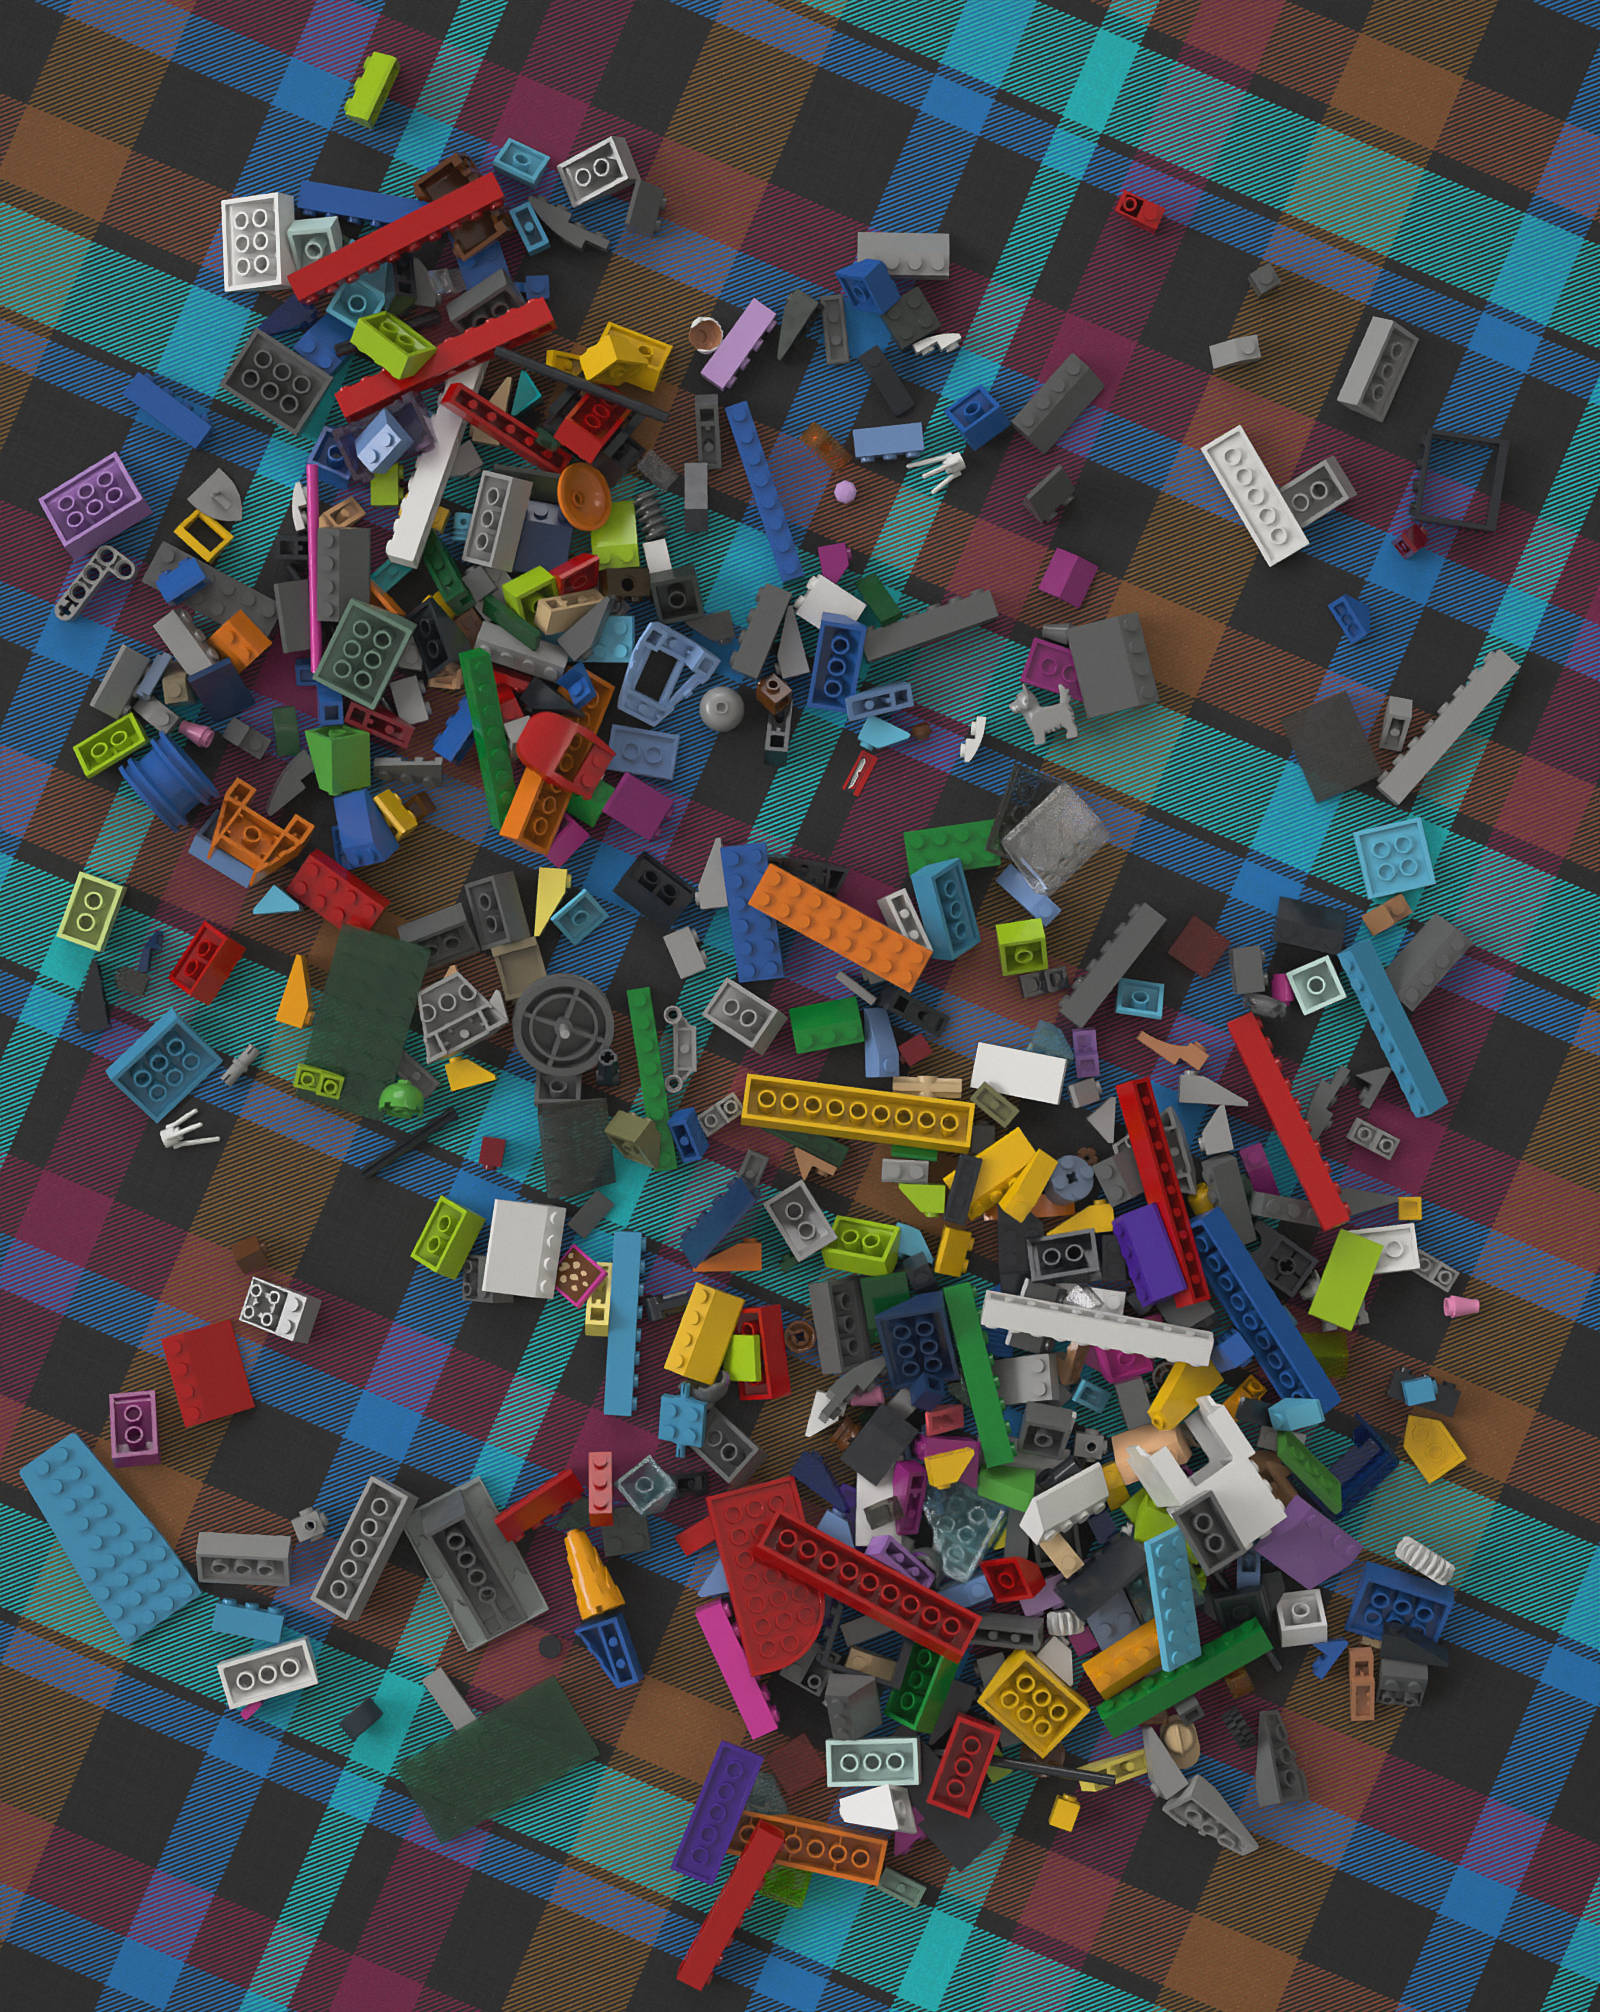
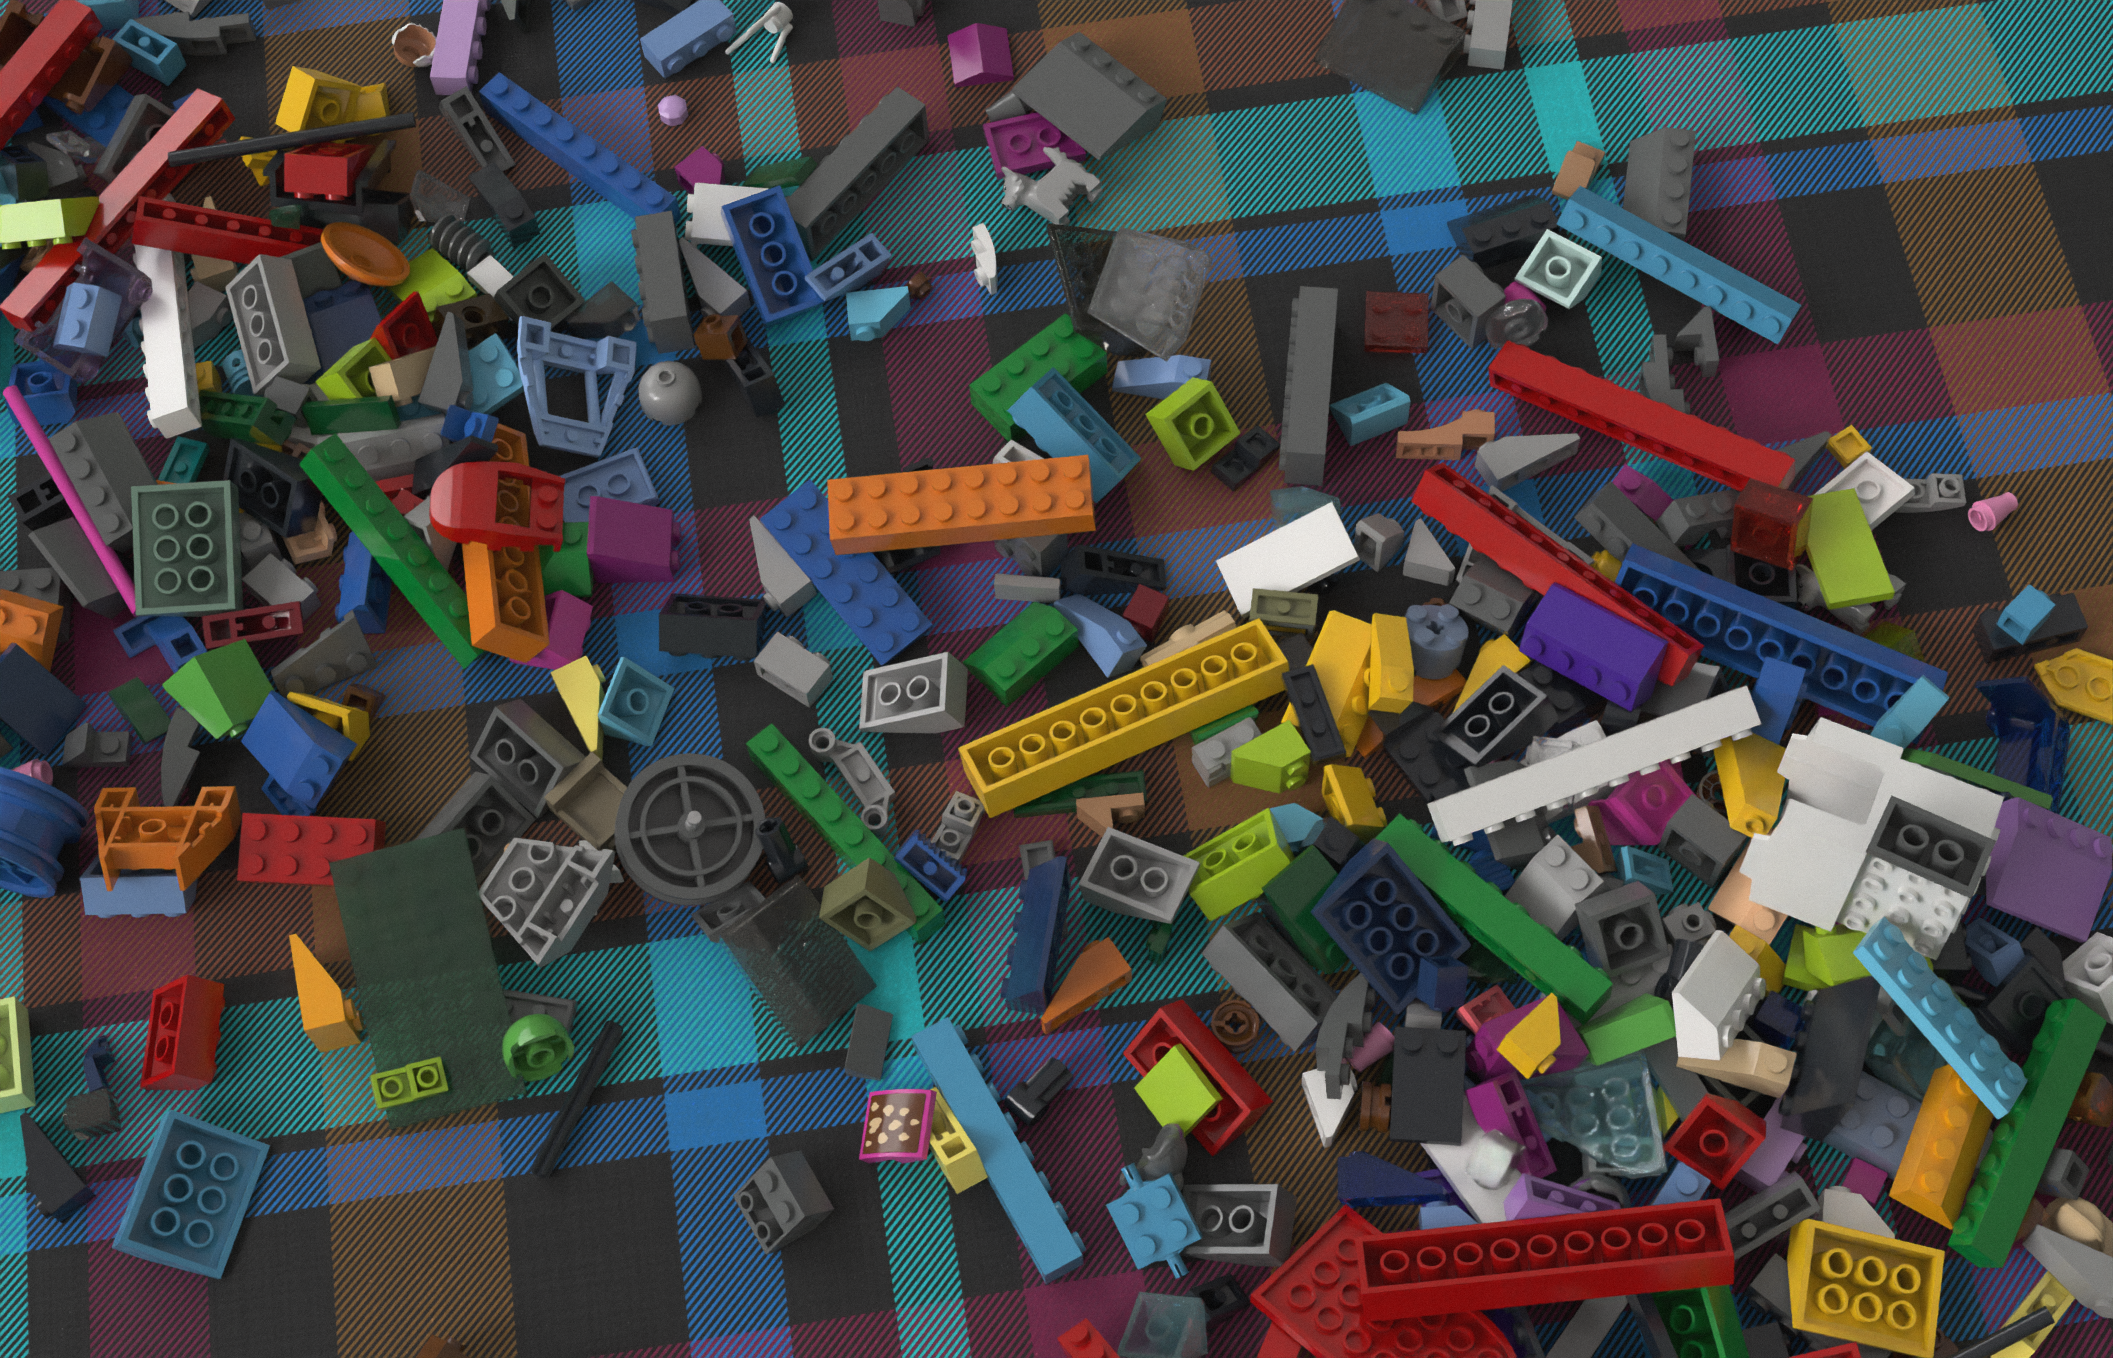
camera: 25 degrees left, 25 degrees down
(171, 1136) = (250, 1278): white plant -> none
(240, 1065) = (295, 1135): light grey pin -> none
(276, 902) = (236, 903): medium azure slope -> none
(298, 502) = (25, 458): white slope -> none
(386, 488) = (122, 385): lime brick -> none
(448, 1238) = (699, 1182): lime slope -> none
(466, 1073) = (604, 966): yellow slope -> none
(492, 1152) = (693, 1041): dark red brick -> none
(524, 1249) = (806, 1126): white slope -> none
(526, 396) = (242, 198): teal slope -> none
(704, 1333) = (1110, 1093): yellow slope -> none
(825, 447) = (620, 77): clear orange slope -> none
(860, 773) = (878, 371): sticker -> none
(1063, 1623) = (1826, 1164): white gear -> none
(1085, 1052) = (1353, 502): medium lavender slope -> none
(1216, 1135) = (1569, 484): light grey slope -> none
(1308, 1246) = (1771, 524): none -> clear red brick
(1373, 1138) = (1747, 400): light grey slope -> none
(1394, 858) = (1542, 113): medium azure plate -> none

